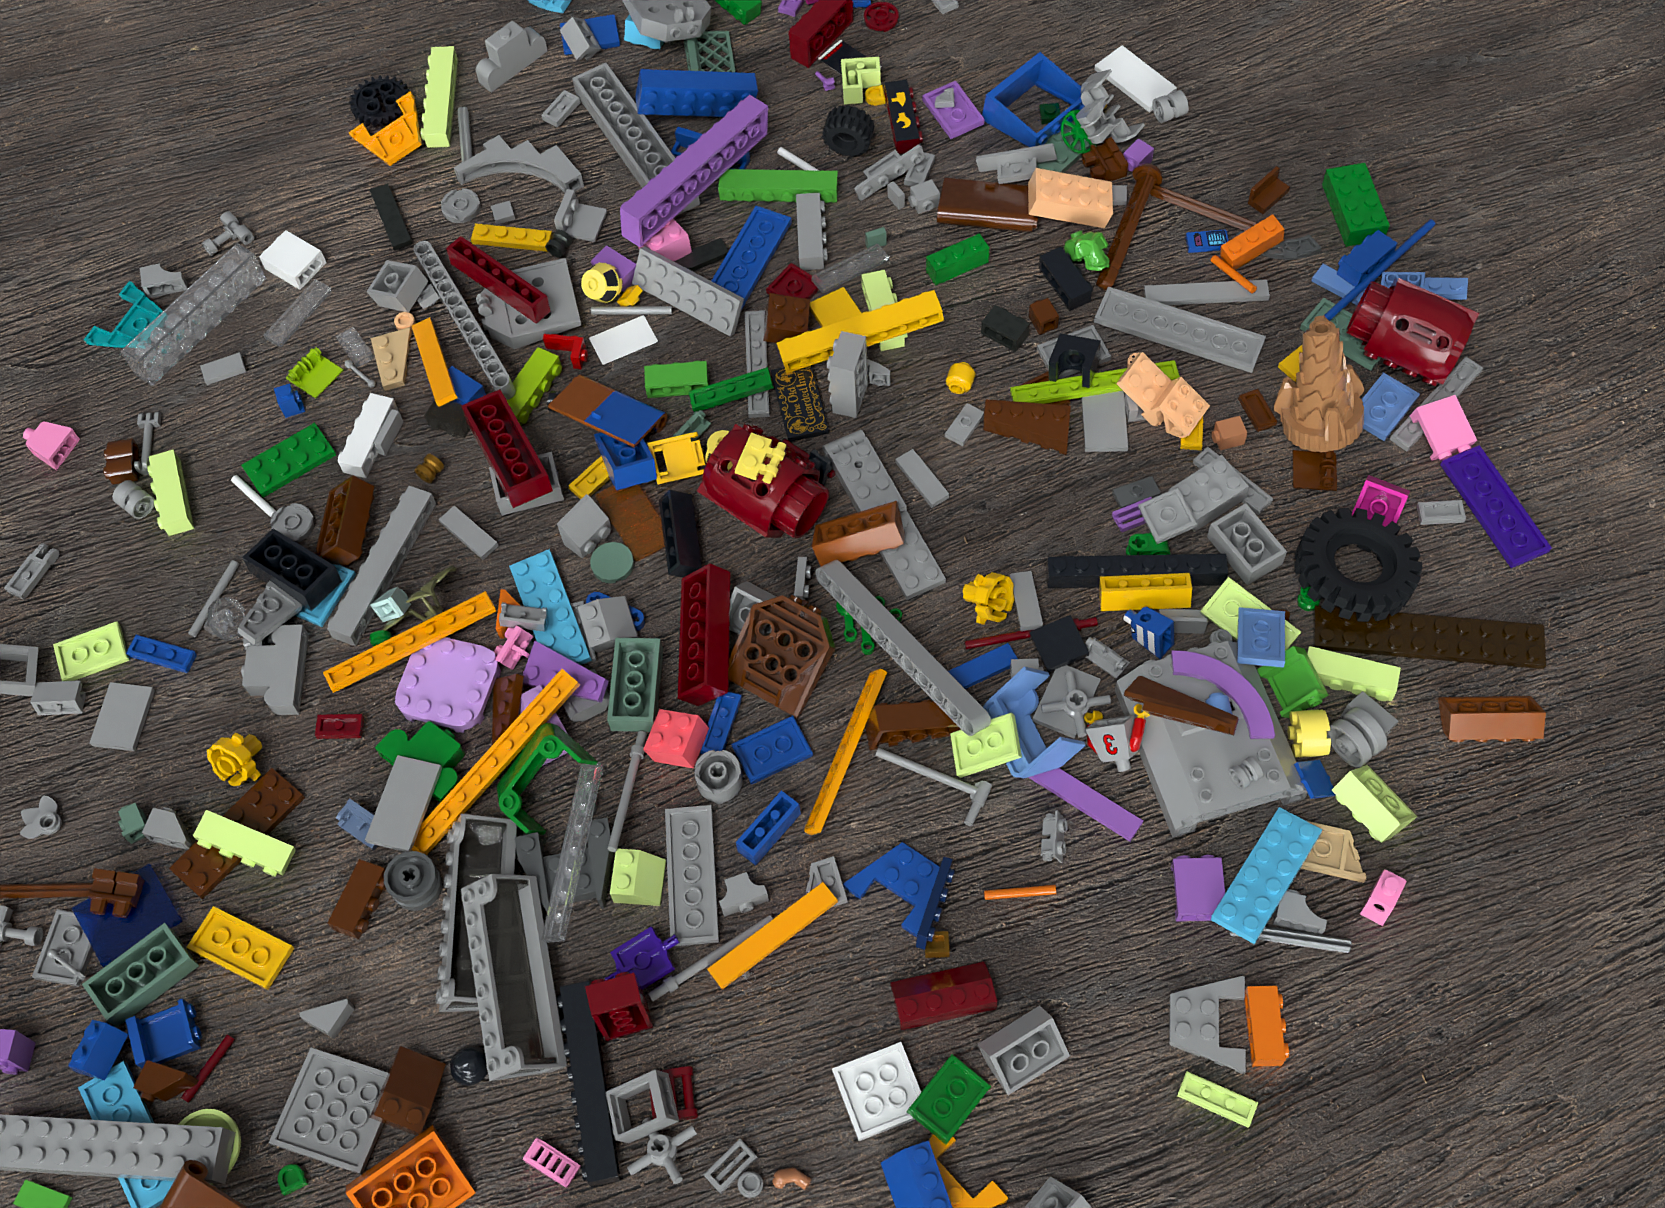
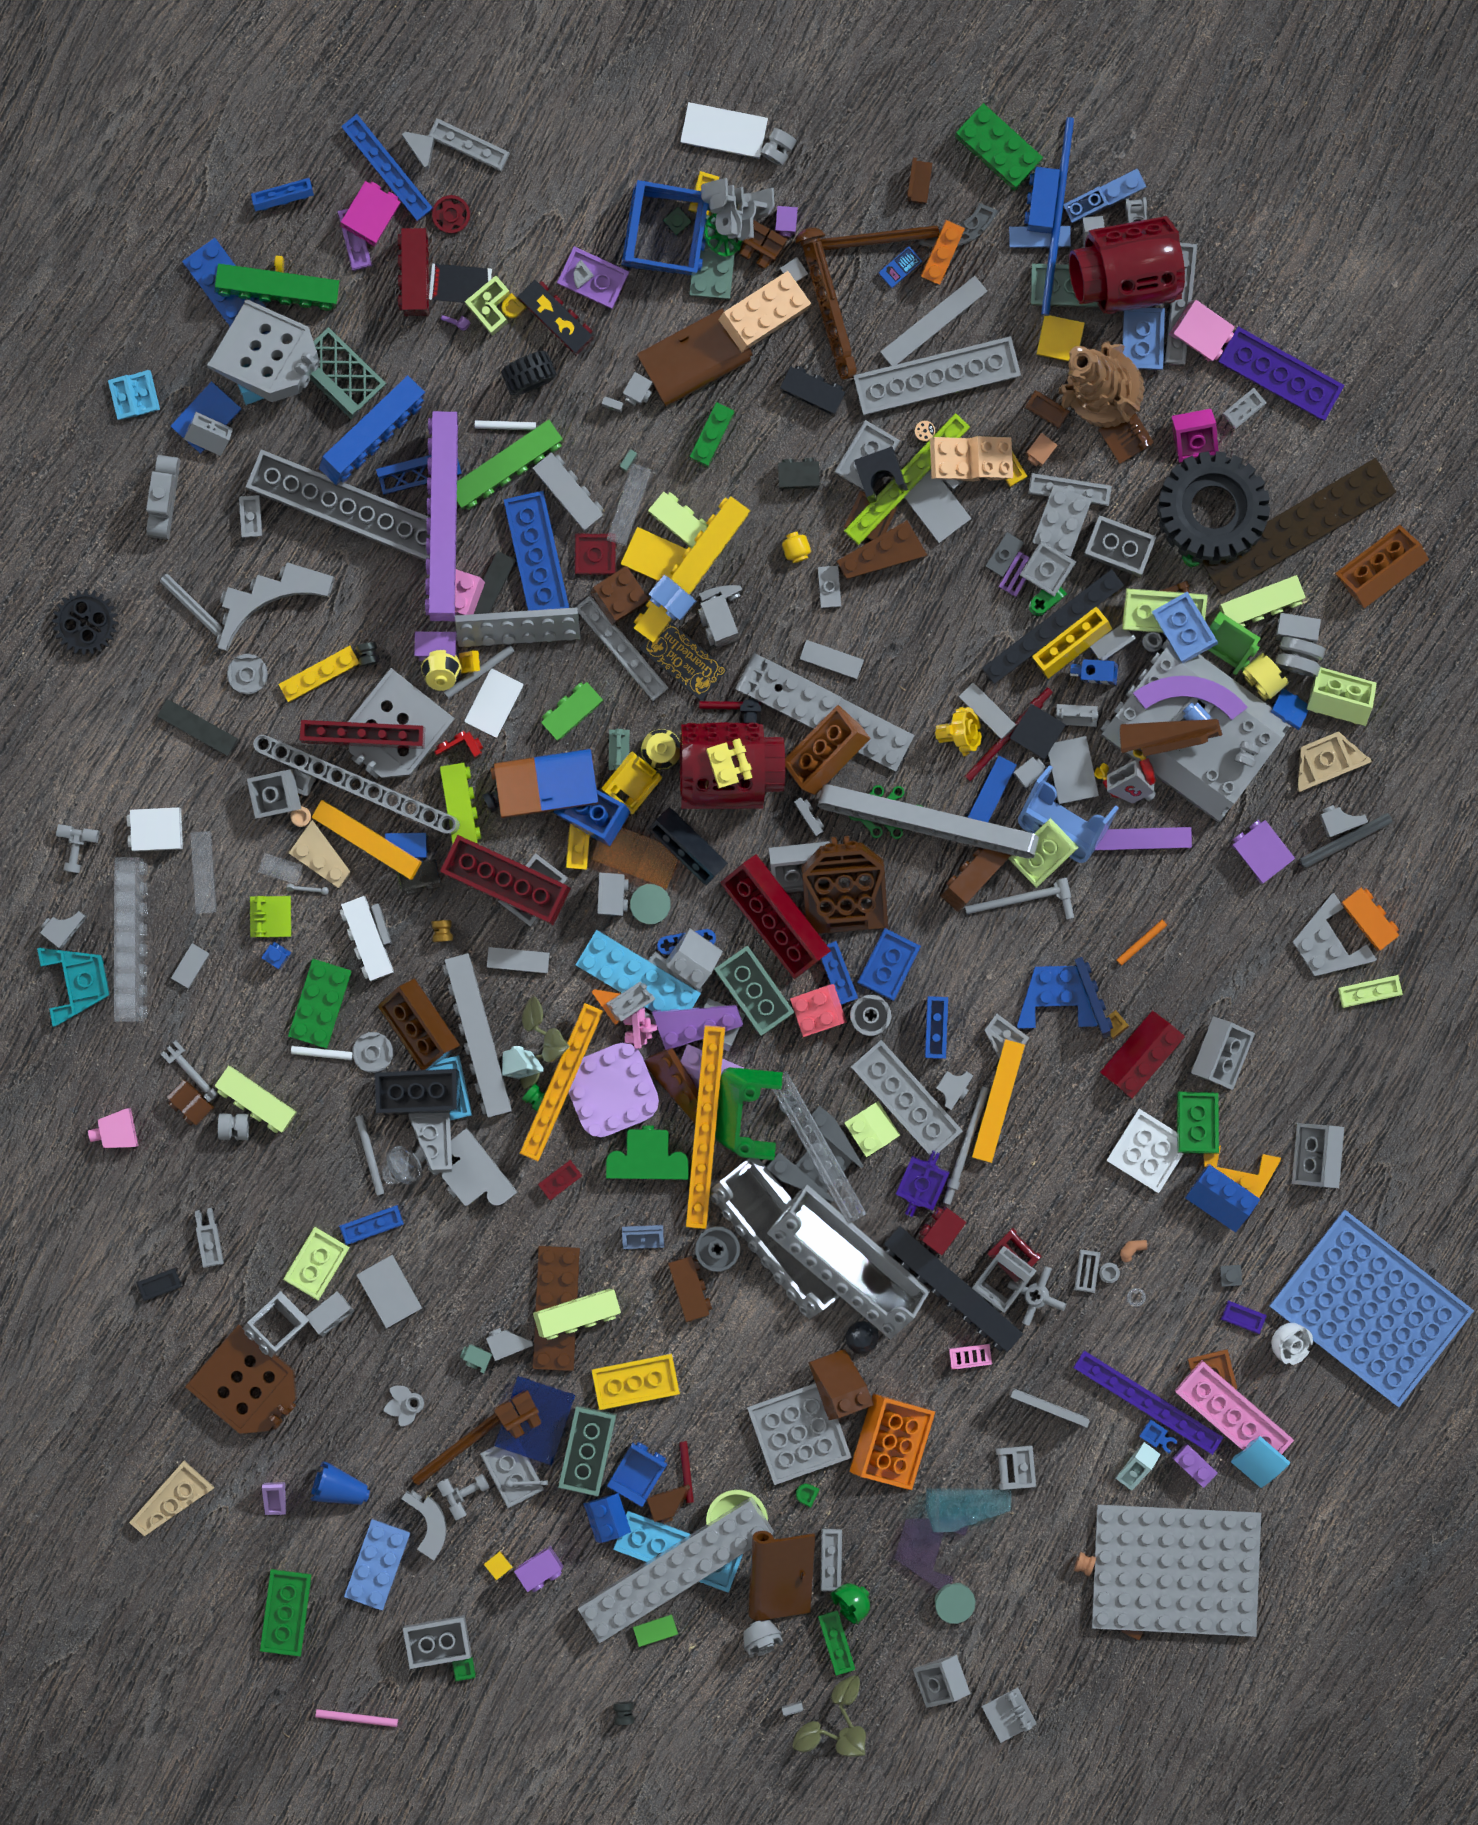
camera: 40 degrees left, 25 degrees up
(235, 755) = (511, 1260): yellow piece -> none
(329, 1017) = (741, 1380): light grey slope -> none
(396, 138) = (136, 651): light orange wing -> none
(403, 804) = (666, 1202): light grey tile -> none
(440, 97) = (134, 580): yellowish green brick -> none
(503, 212) = (290, 655): light grey tile -> none
(579, 219) = (366, 617): light grey bracket -> none
(636, 755) = (795, 1039): light grey bar -> none
(731, 389) = (624, 691): green plate -> none
(824, 331) = (671, 597): none -> medium blue brick
(845, 752) = (944, 927): light orange tile -> none
(887, 170) = (585, 385): light grey bracket -> none
(920, 172) = (611, 362): light grey plate -> none
(1016, 164) = (693, 306): light grey bracket -> none
(1043, 316) = (820, 440): reddish brown brick -> none
(1055, 827) = (1135, 877): light grey hinge -> none
(1082, 704) = (1078, 780): light grey bar -> none
(1088, 247) = (814, 353): bright green head -> none
(1233, 274) = (945, 290): orange bar -> none
(1266, 875) = (1304, 810): medium azure plate -> none
(1385, 893) = (1391, 766): bright pink torso -> none

